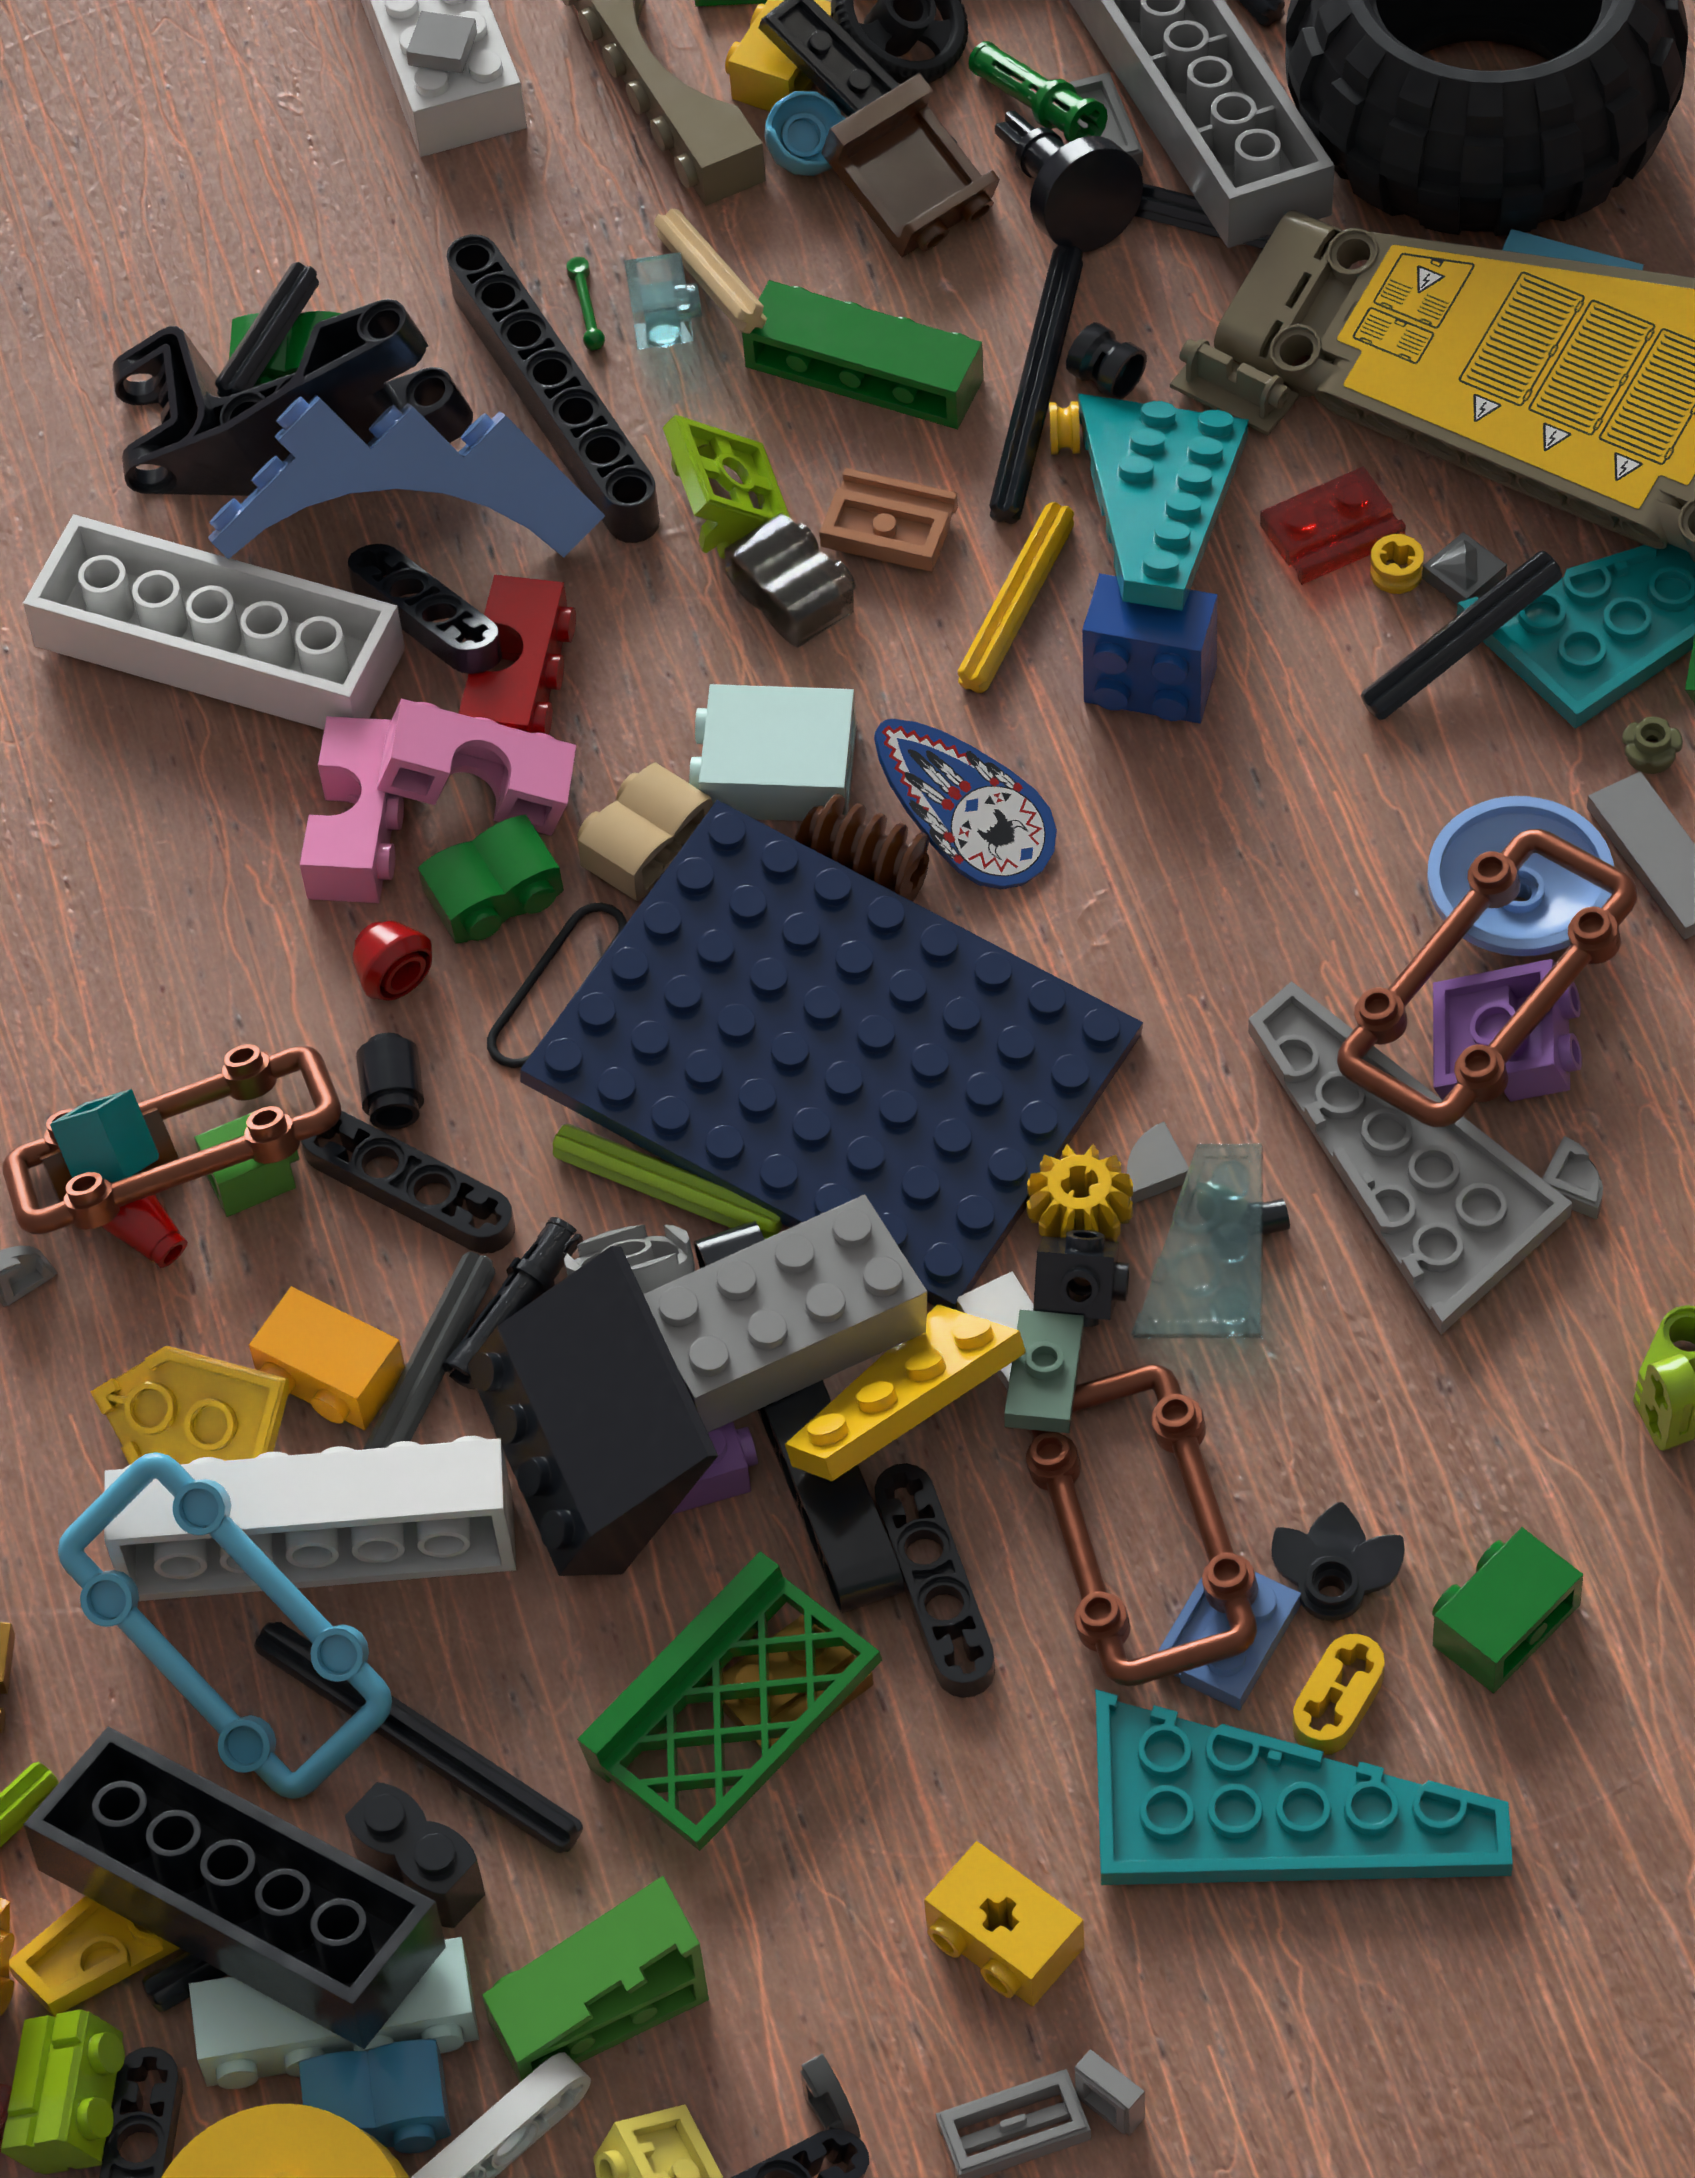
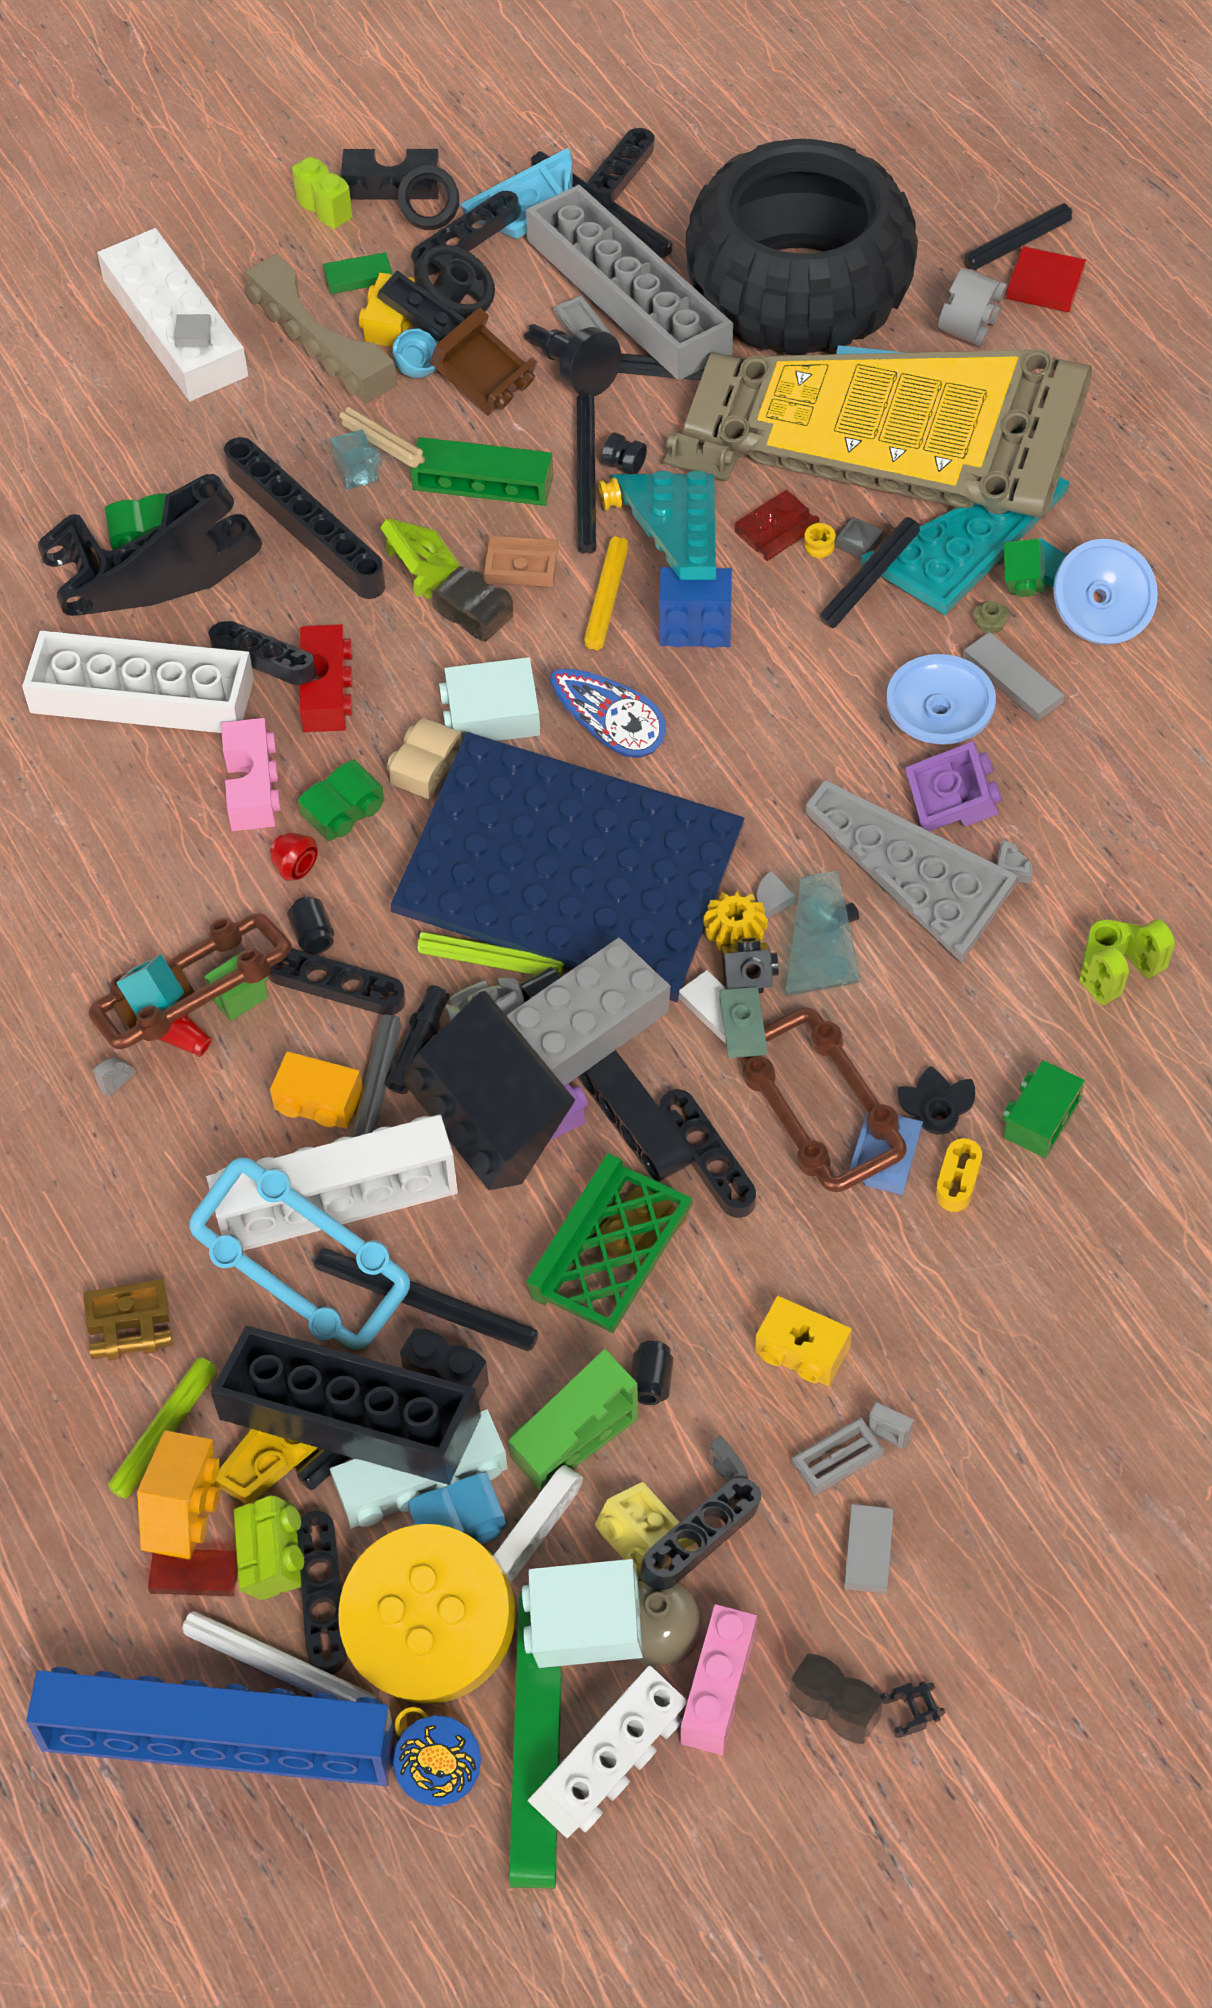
camera: 15 degrees left, 0 degrees up
(193, 1407) = (242, 1130): yellow tile -> none
(268, 330) = (129, 508): black axle -> none
(407, 453) = (190, 573): medium blue arch -> none
(523, 768) = (345, 734): bright pink arch -> none
(537, 971) = (380, 849): black piece -> none
(578, 271) = (300, 451): green hinge -> none
(744, 1928) = (652, 1371): none -> black brick
(867, 848) = (559, 745): reddish brown piece -> none
(903, 1390) = (667, 1046): yellow wing -> none
(997, 67) = (555, 314): green pin -> none
(1260, 1809) = (929, 1248): teal wing -> none
(1482, 1068) = (950, 807): copper bar -> none

